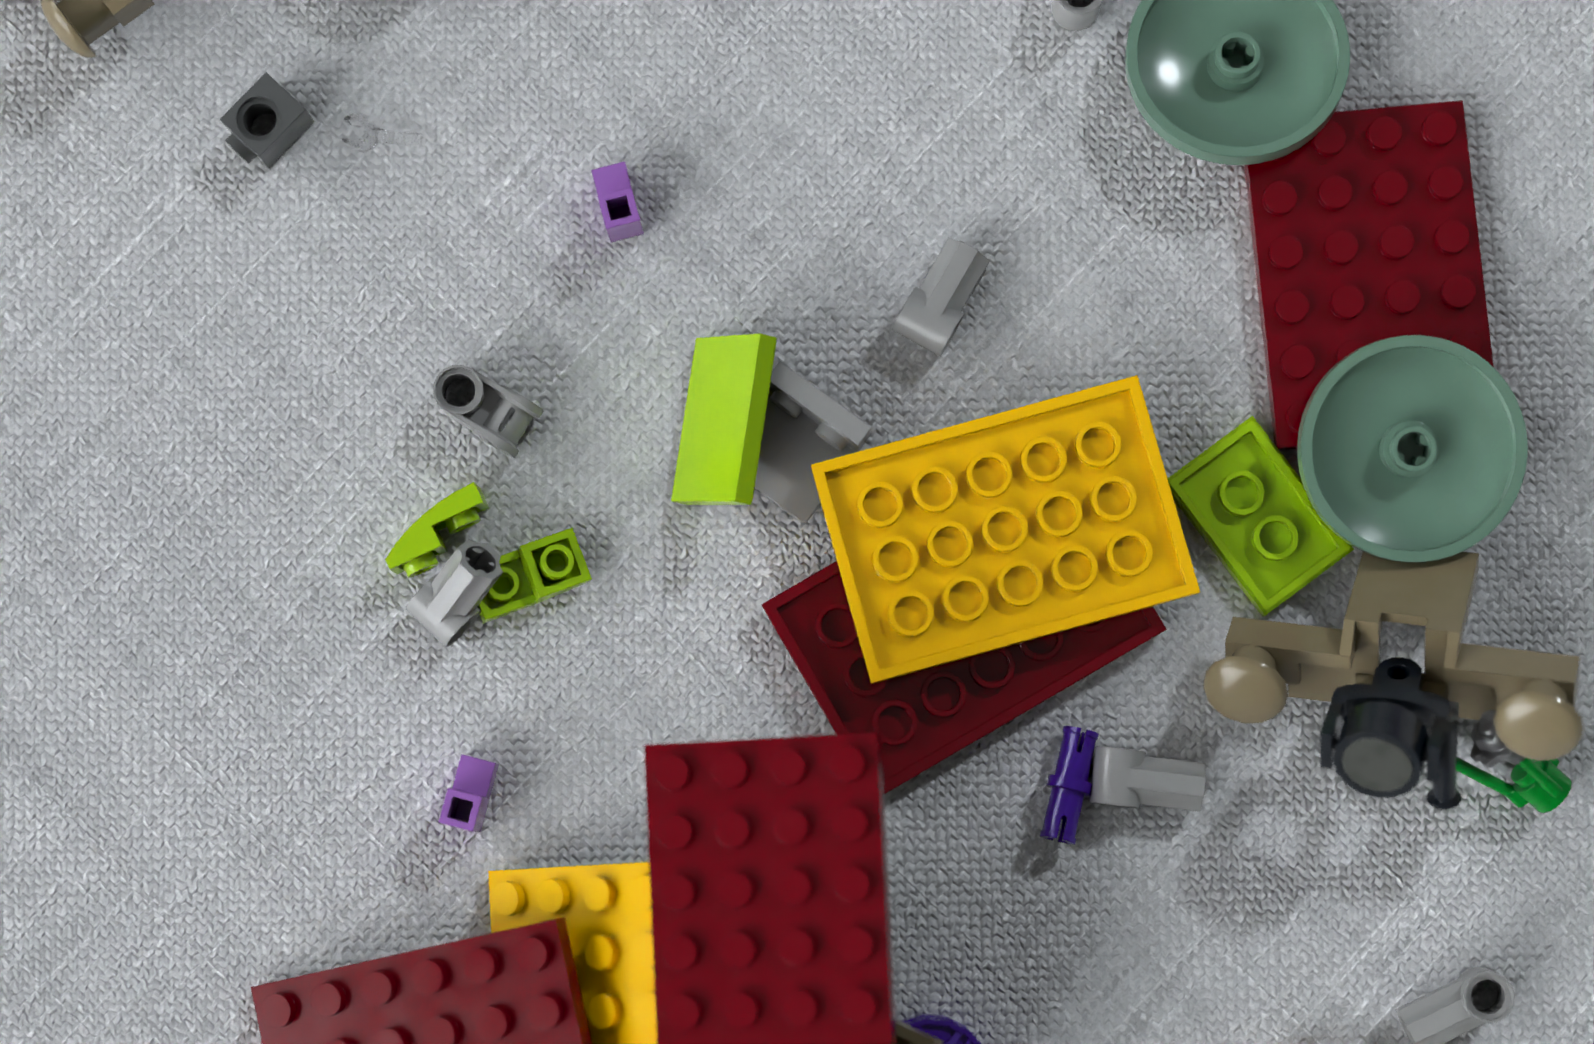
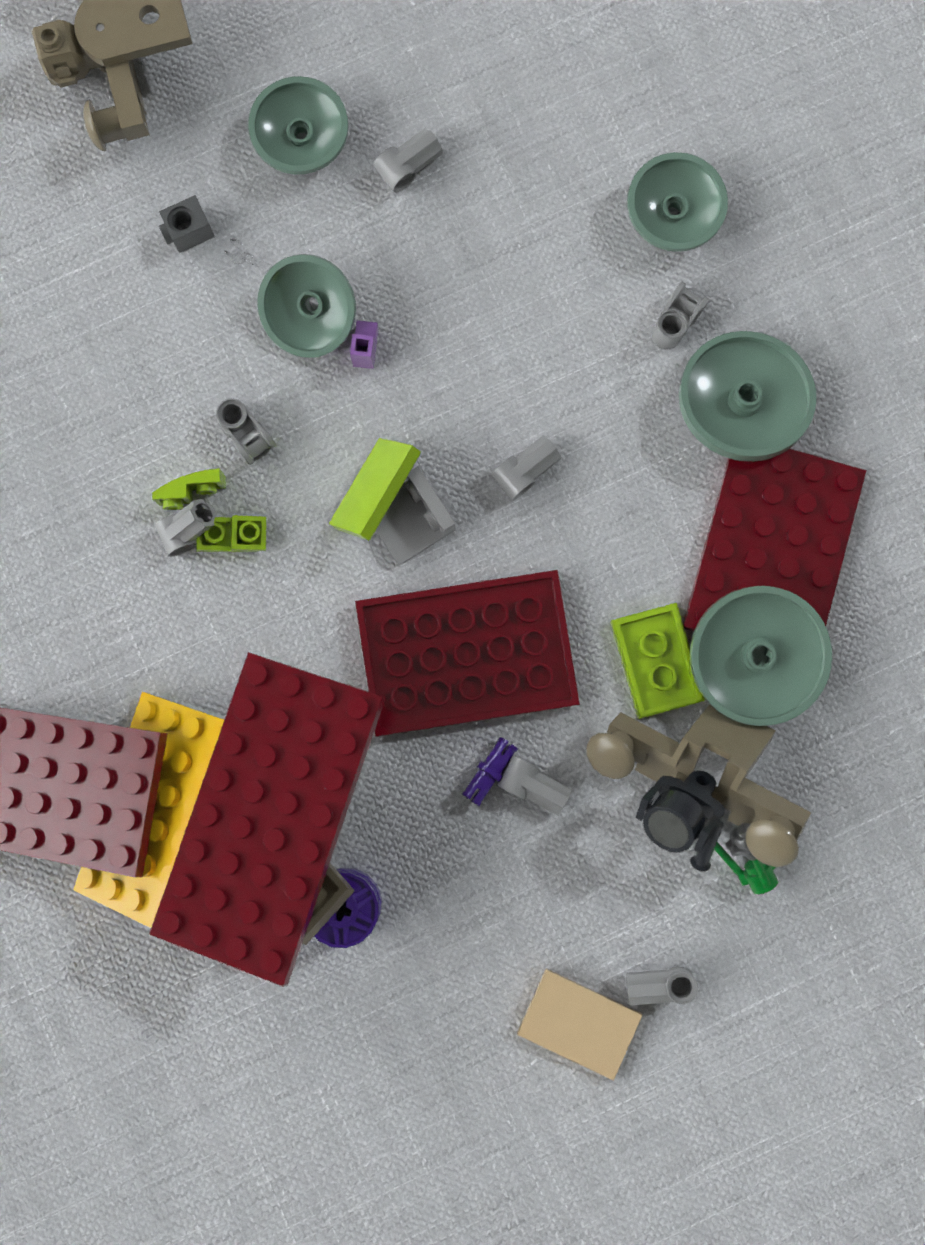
camera: 15 degrees right, 0 degrees up
(469, 797) = (147, 647): medium lavender piece -> none
(499, 211) = (287, 310): none -> sand green dish
(1004, 529) = (509, 611): yellow plate -> none

